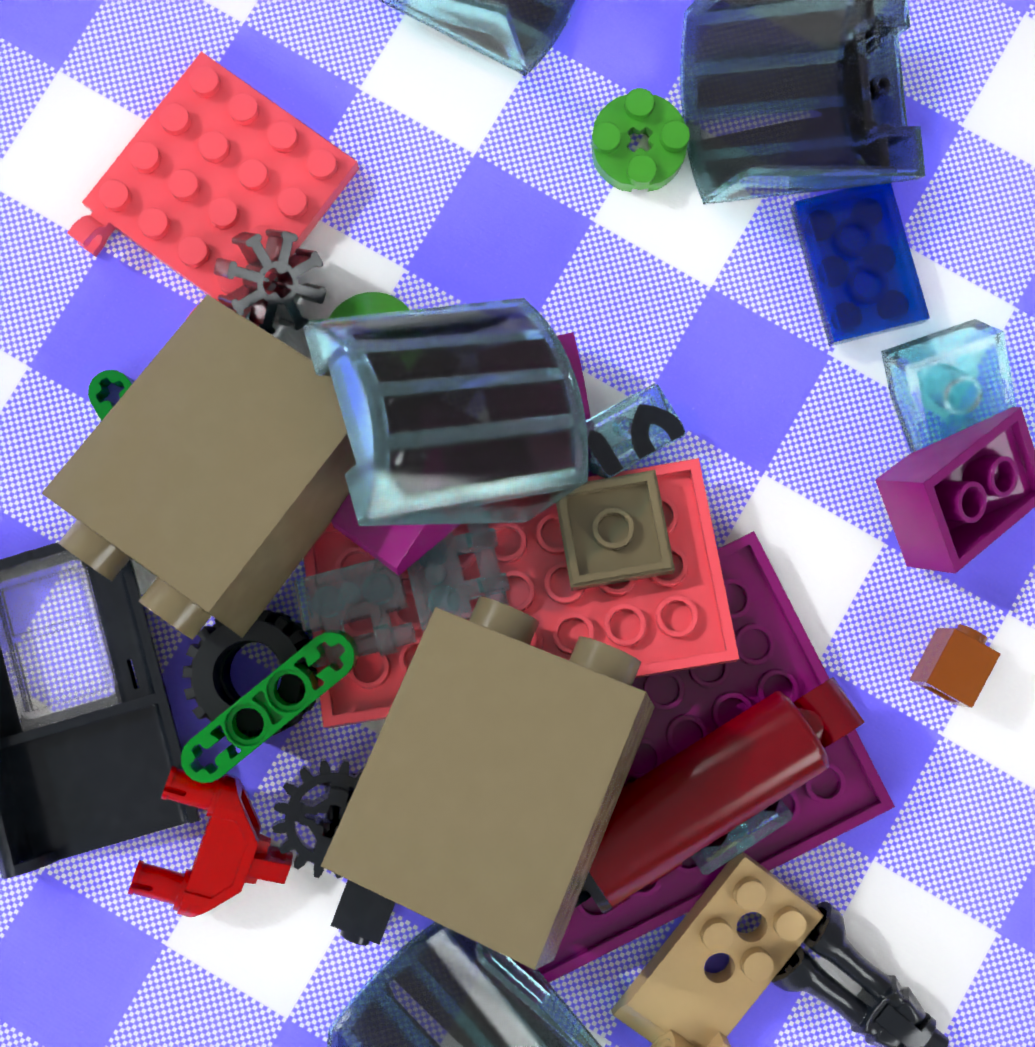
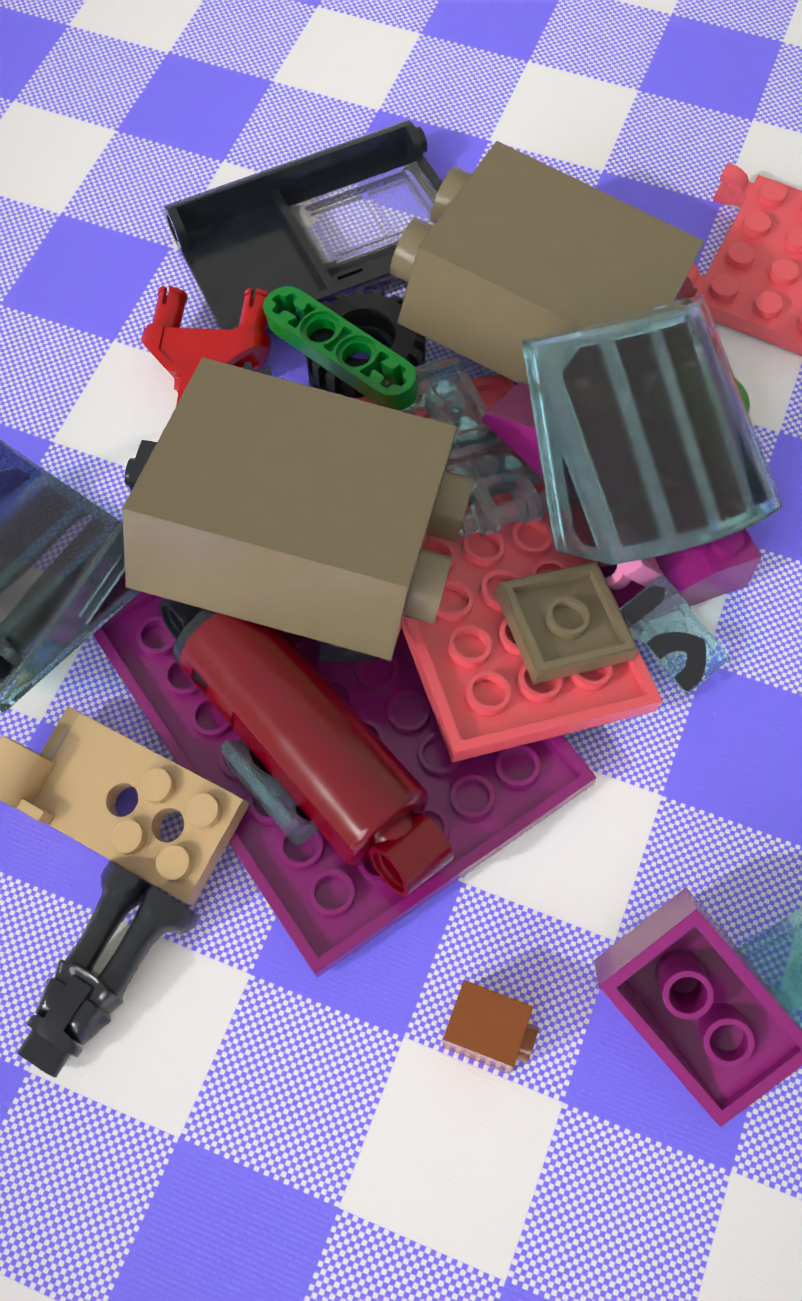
camera: 85 degrees right, 20 degrees down
(276, 260) = (749, 305): gear -> none

